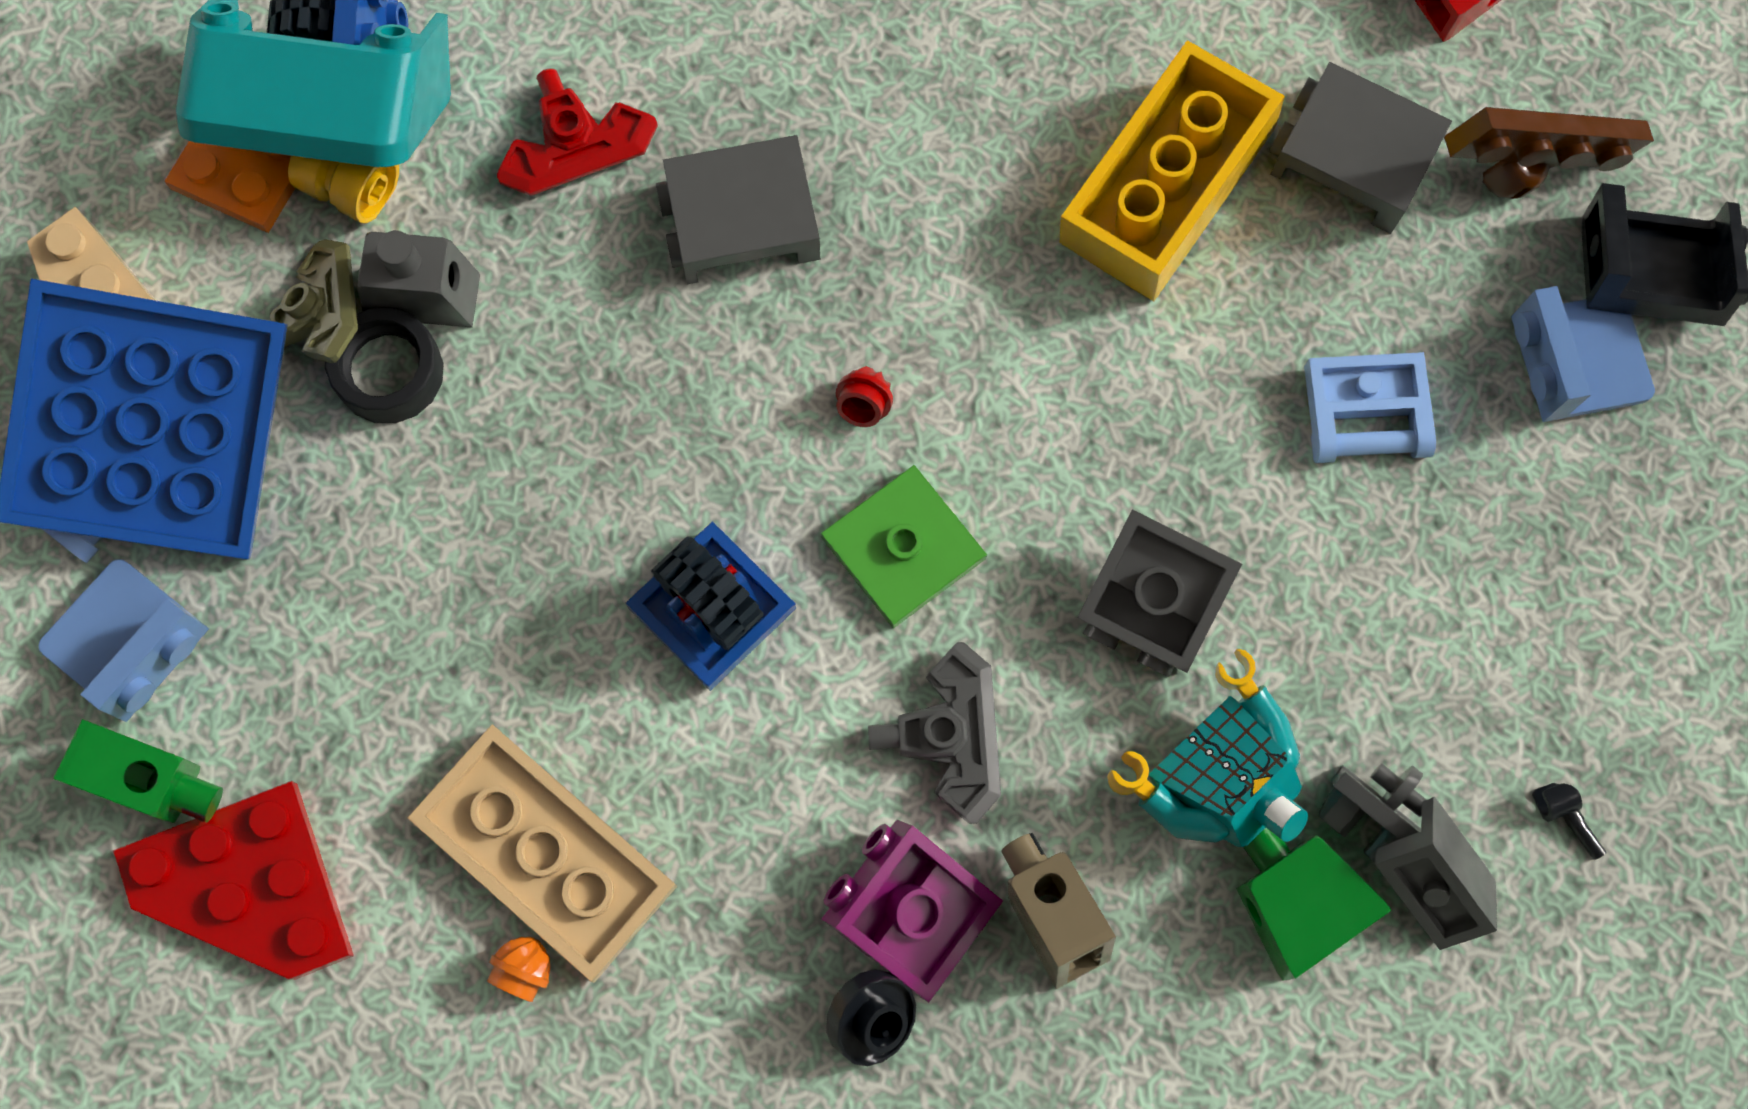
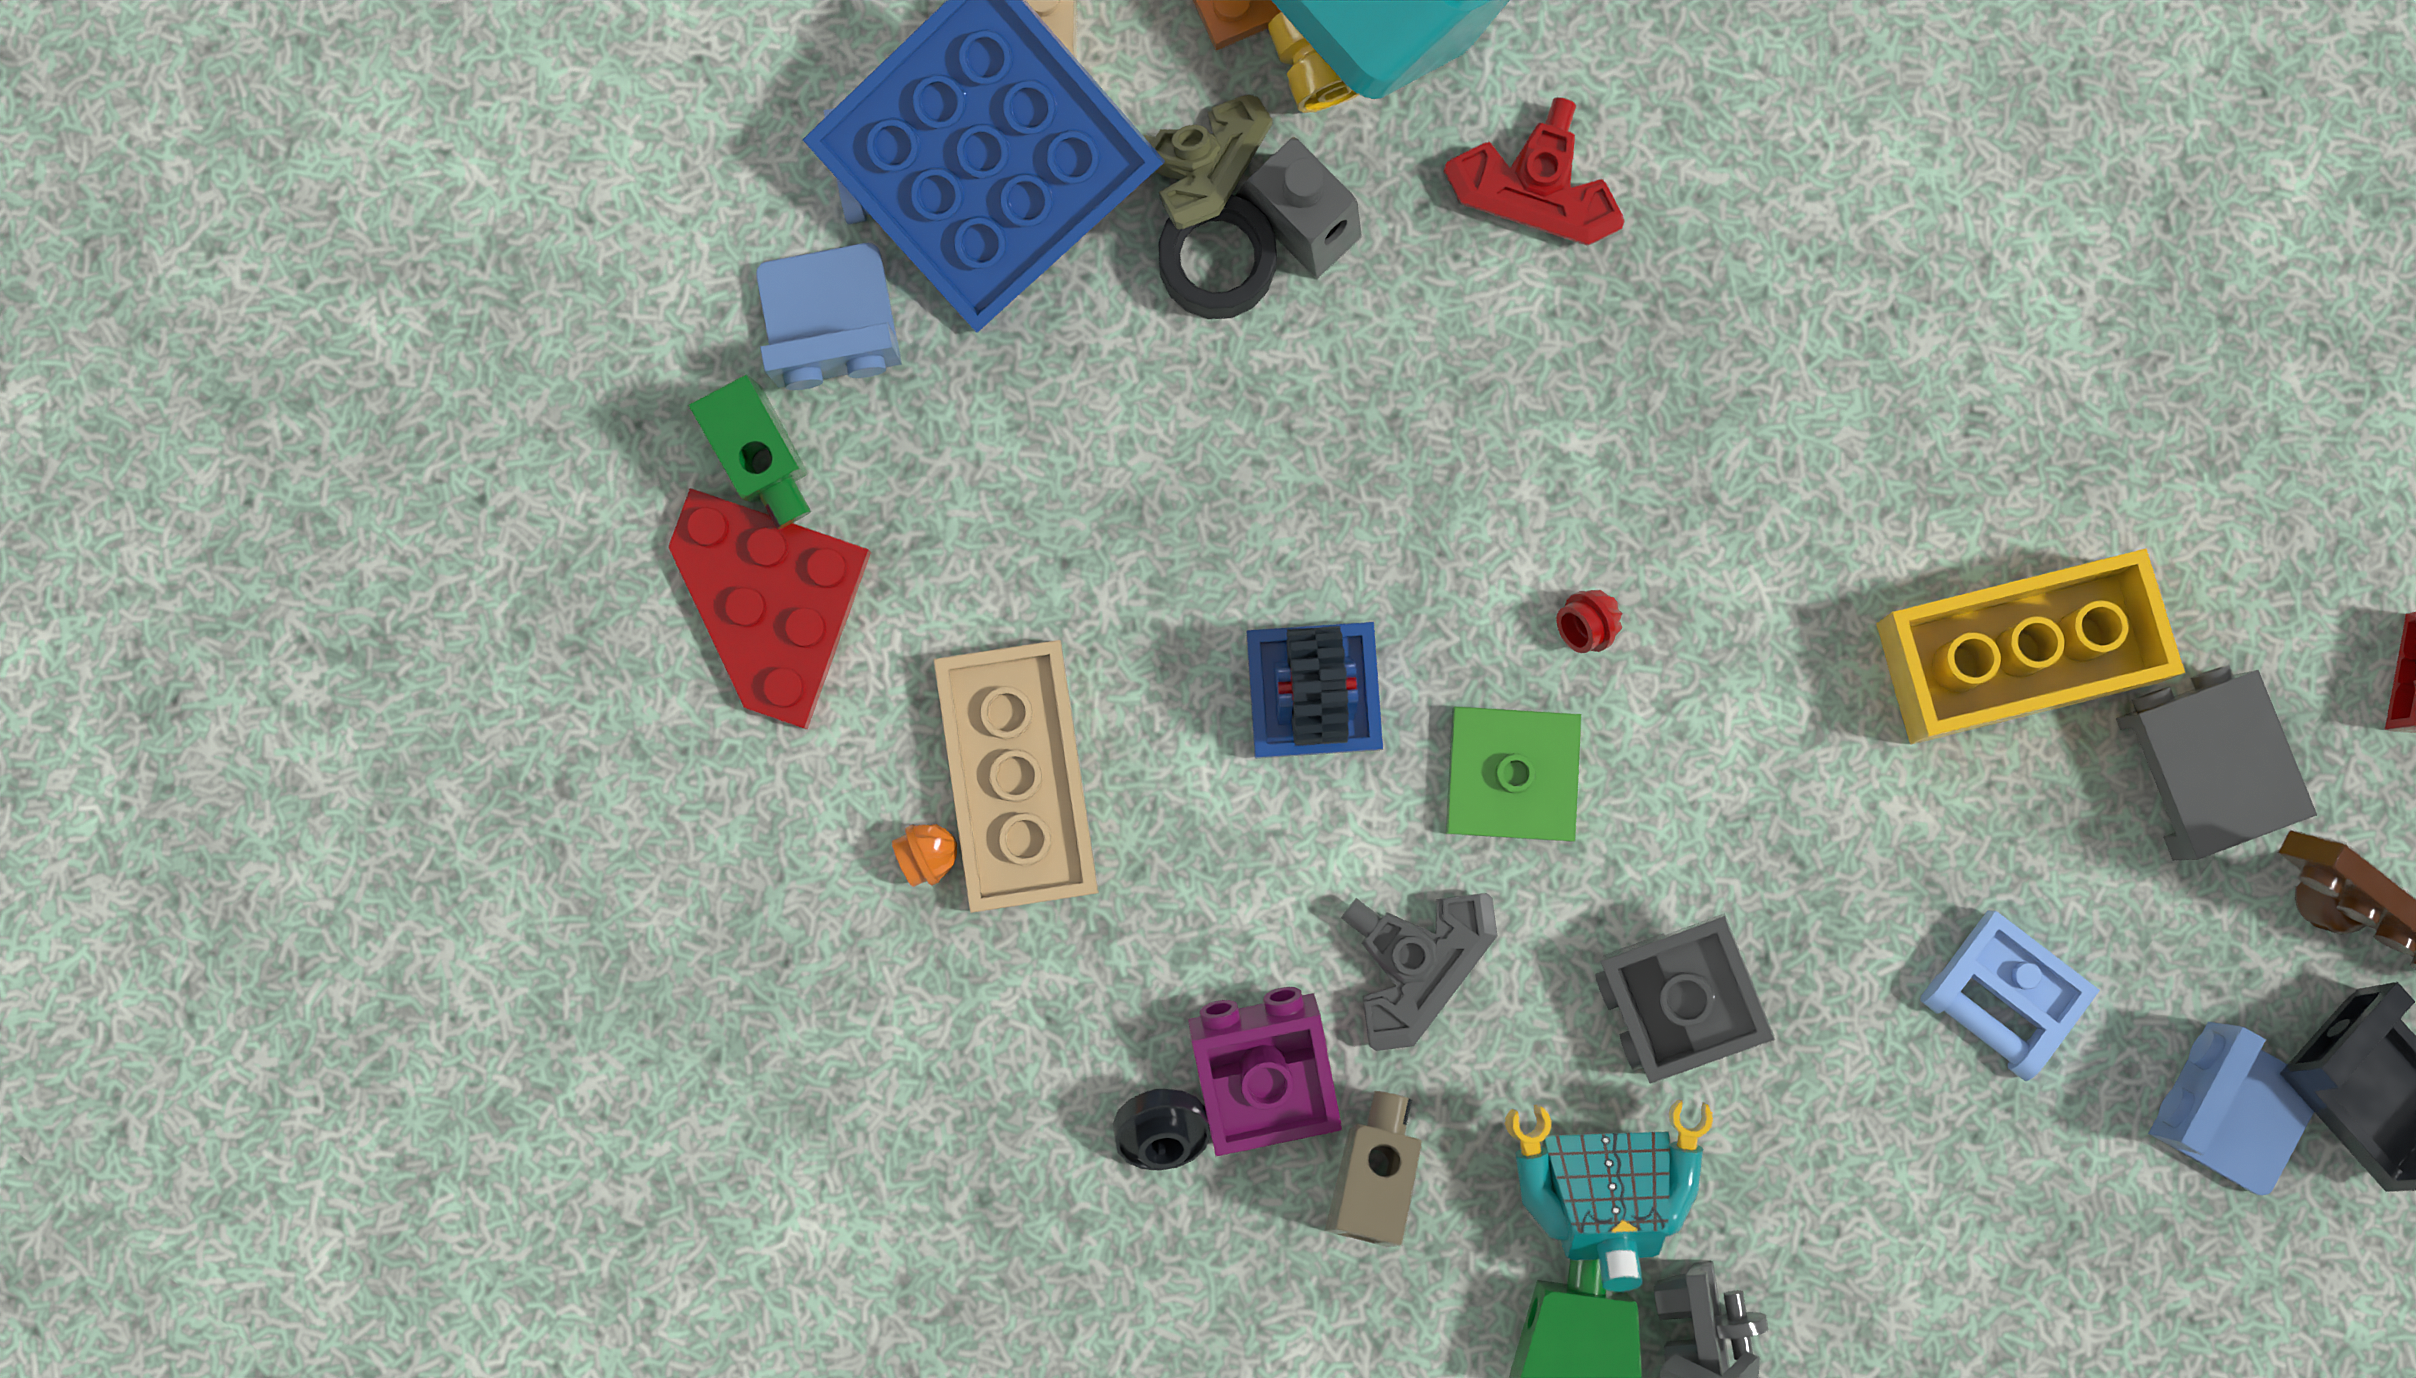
camera: 40 degrees right, 10 degrees up
(738, 206) = (1627, 365): dark grey panel -> none

